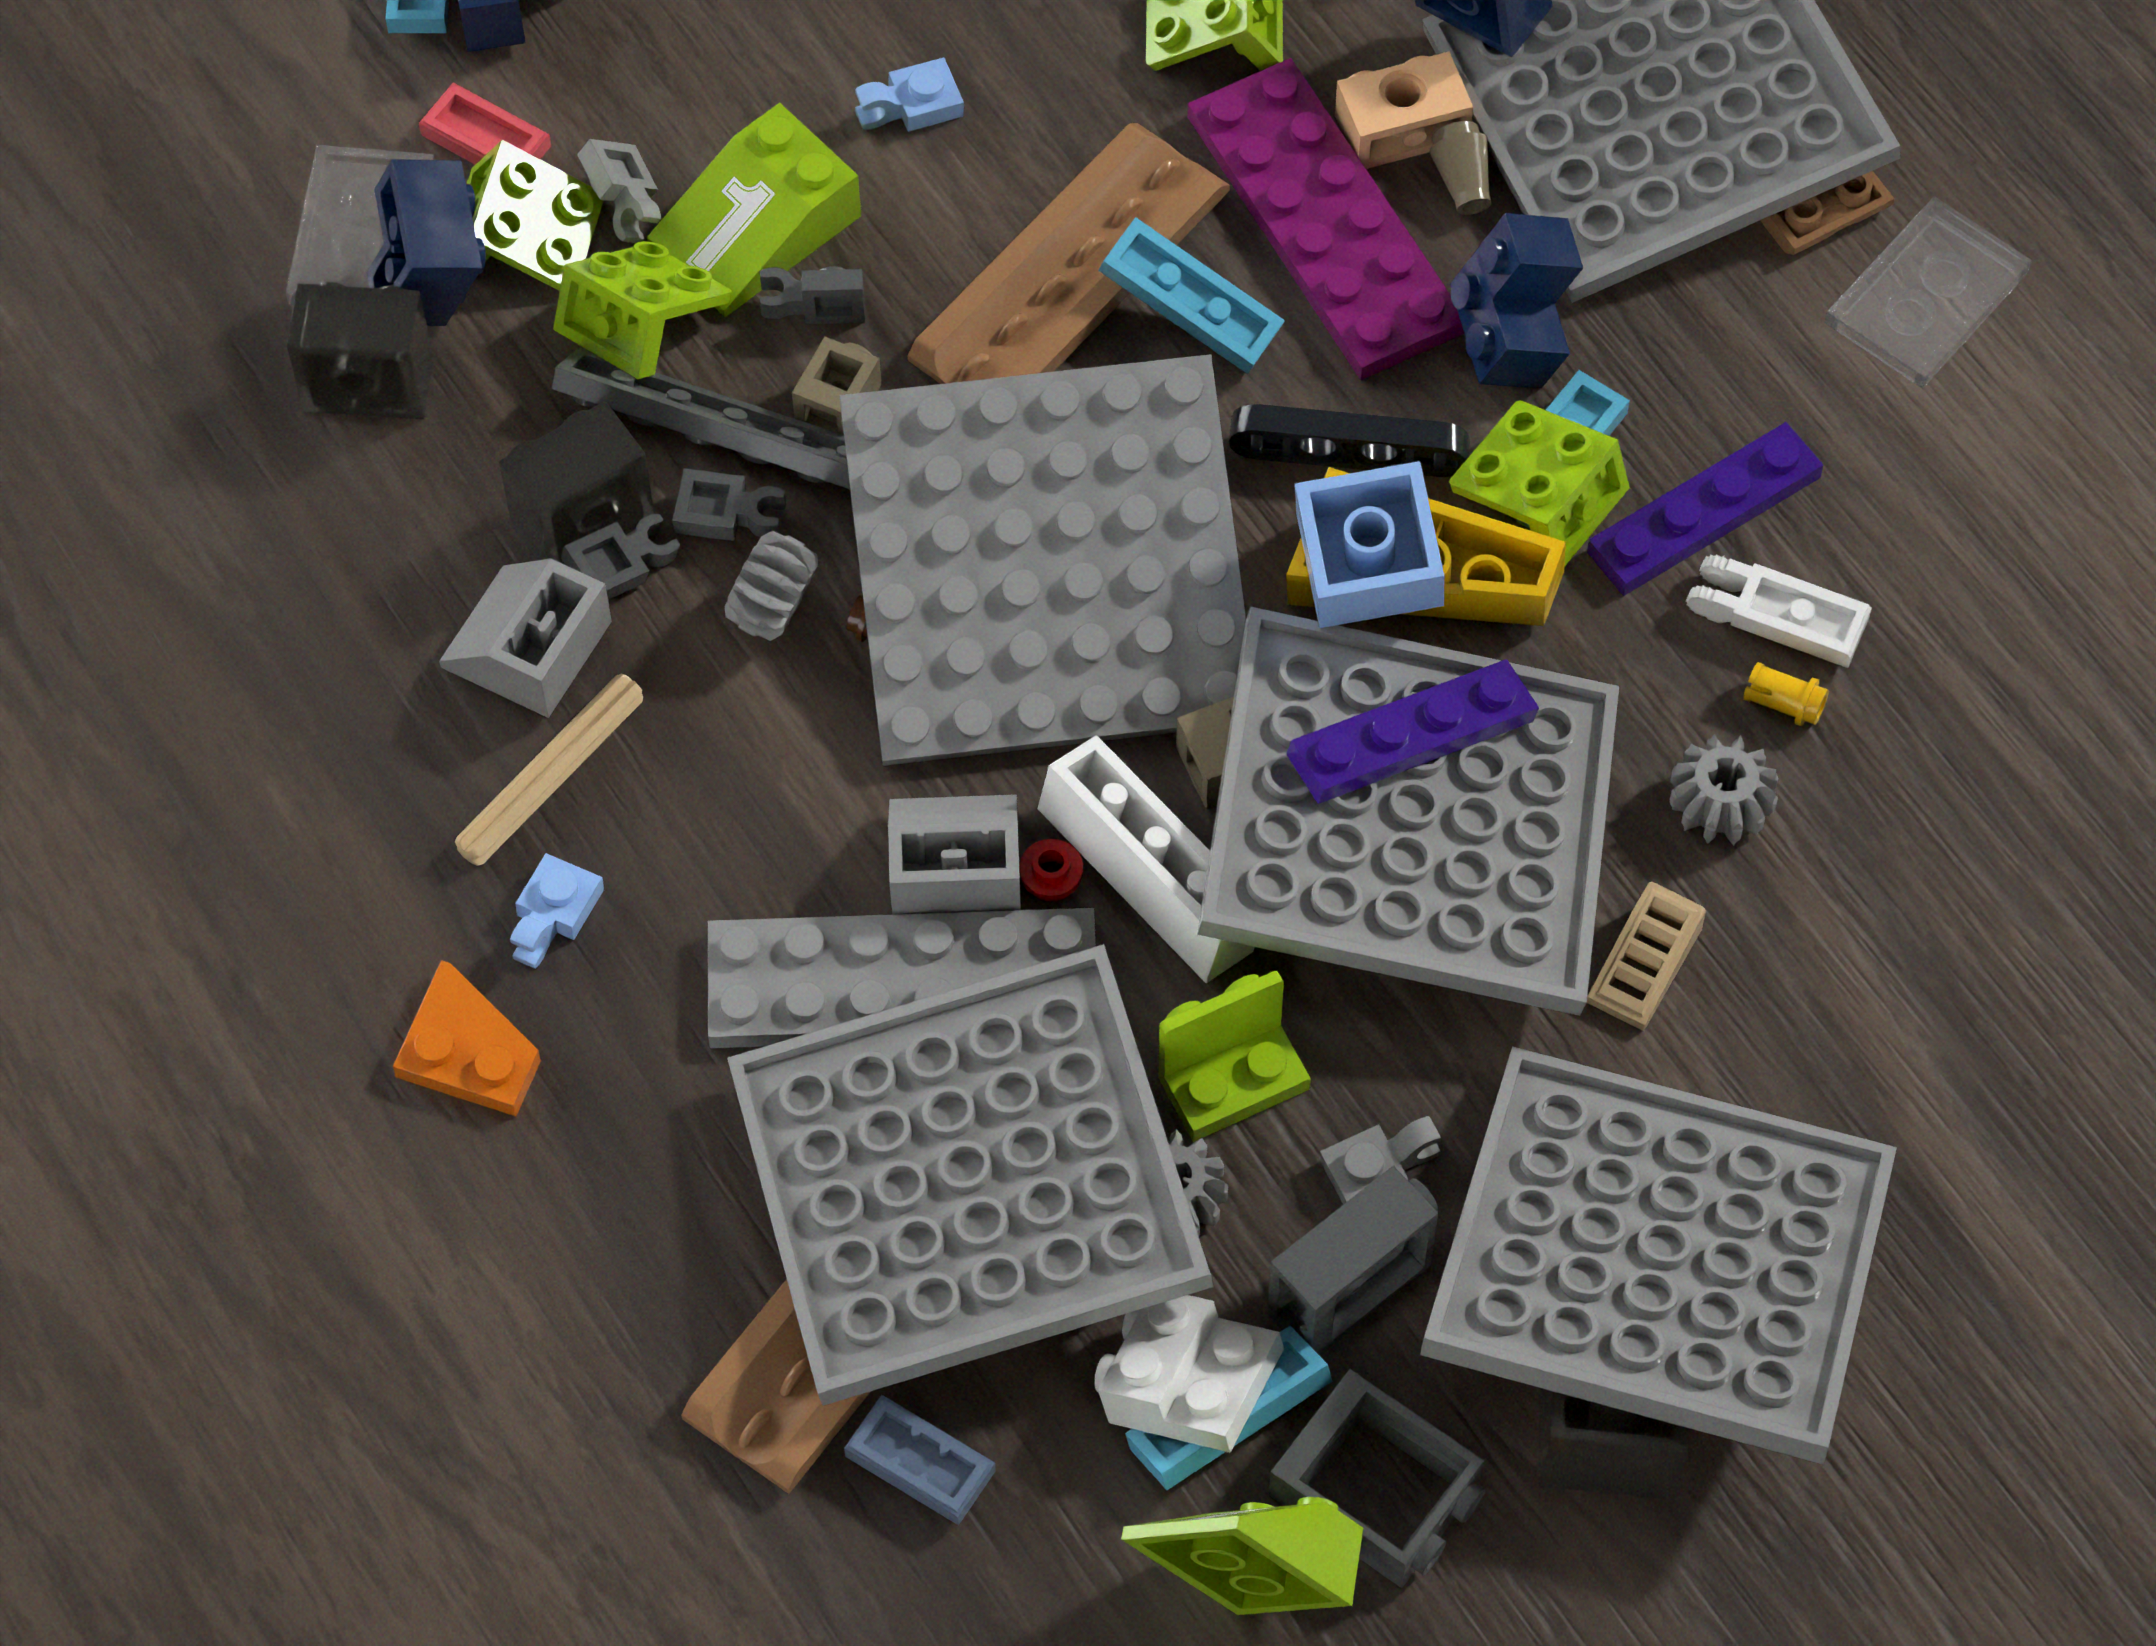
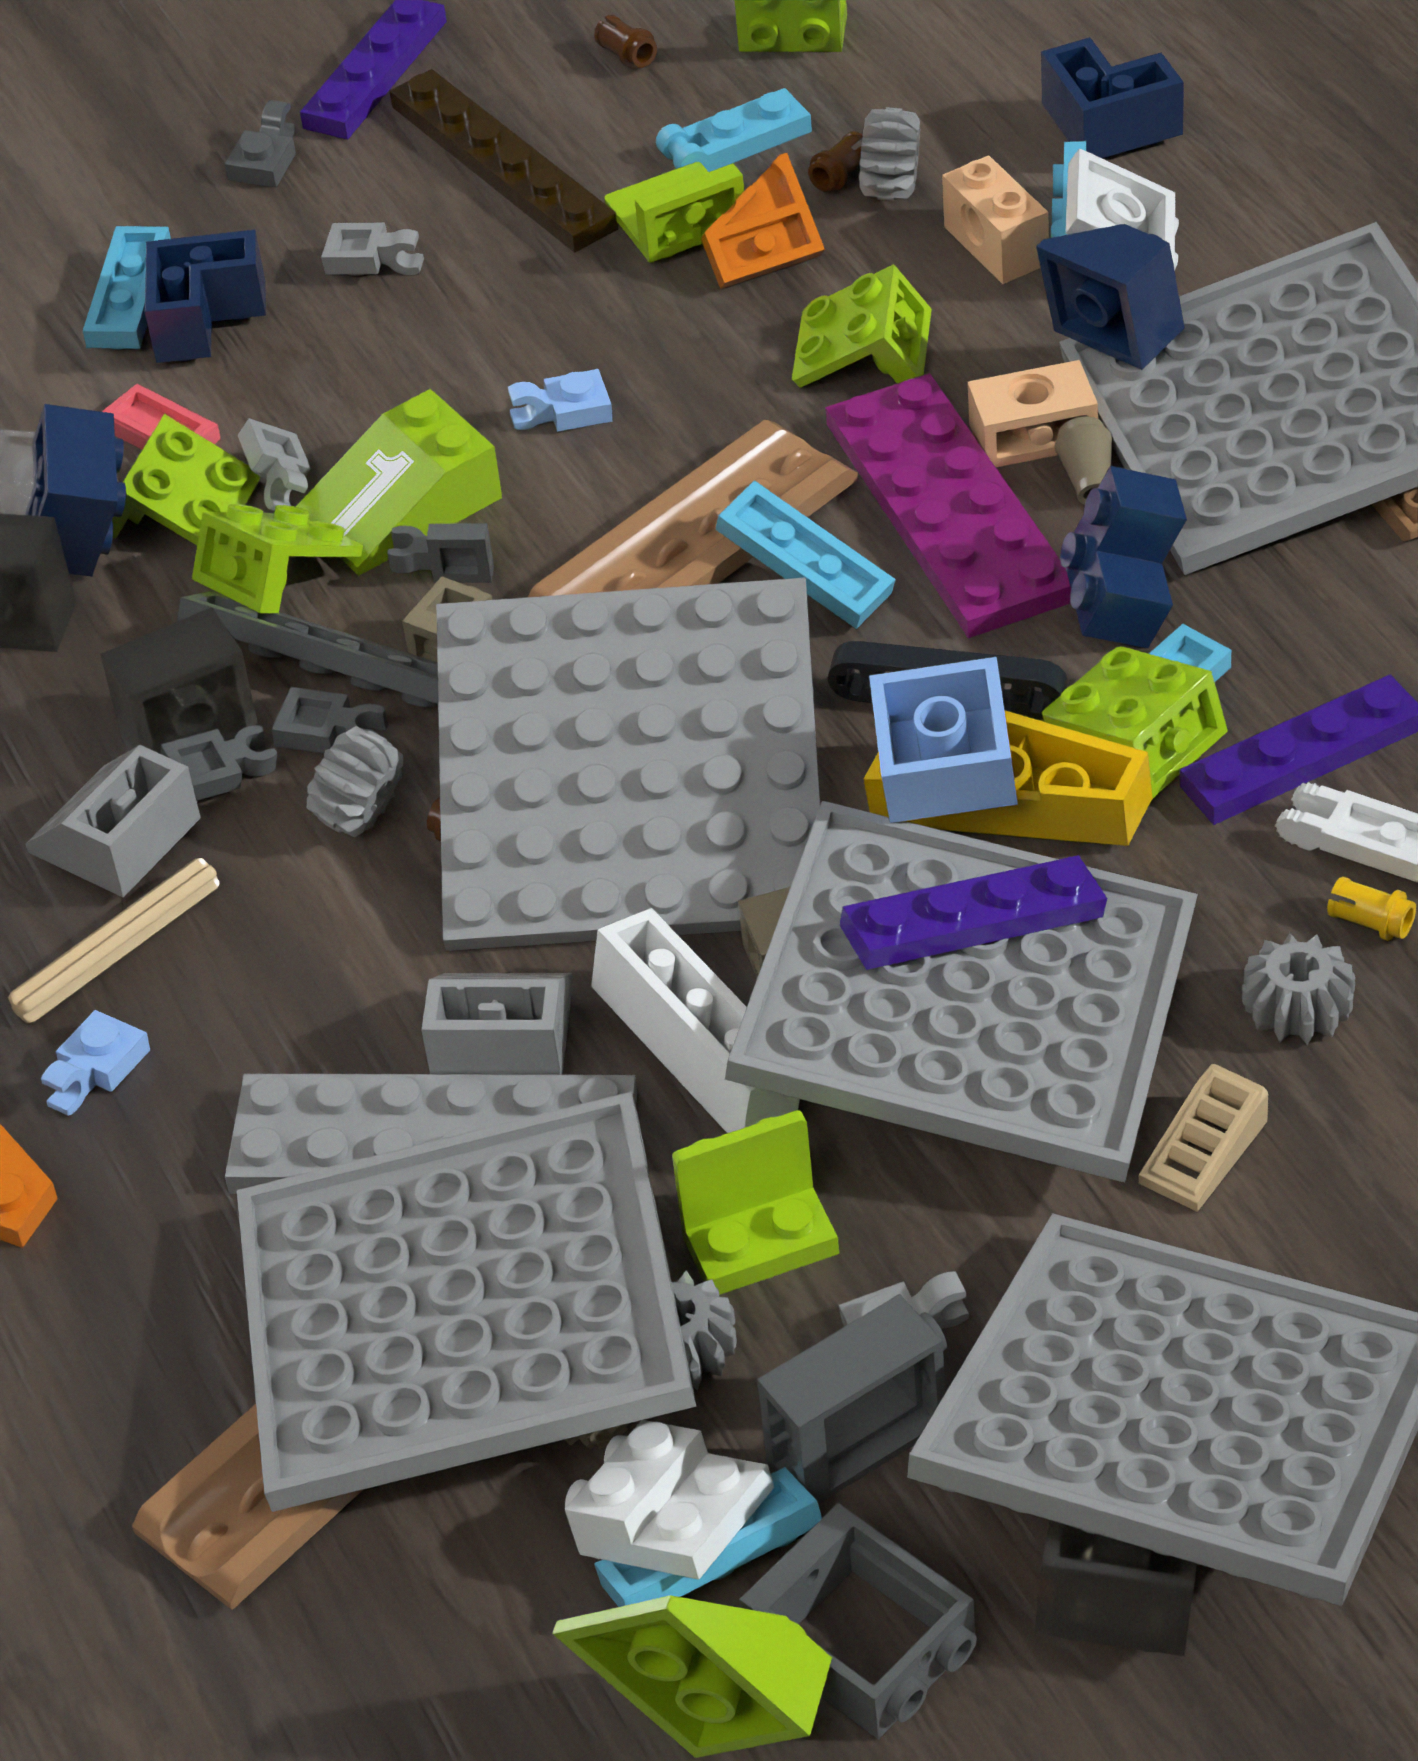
camera: 10 degrees right, 15 degrees down
(920, 1459) = (374, 1581): sand blue plate -> none
(1053, 885) = (598, 1042): red plate -> none

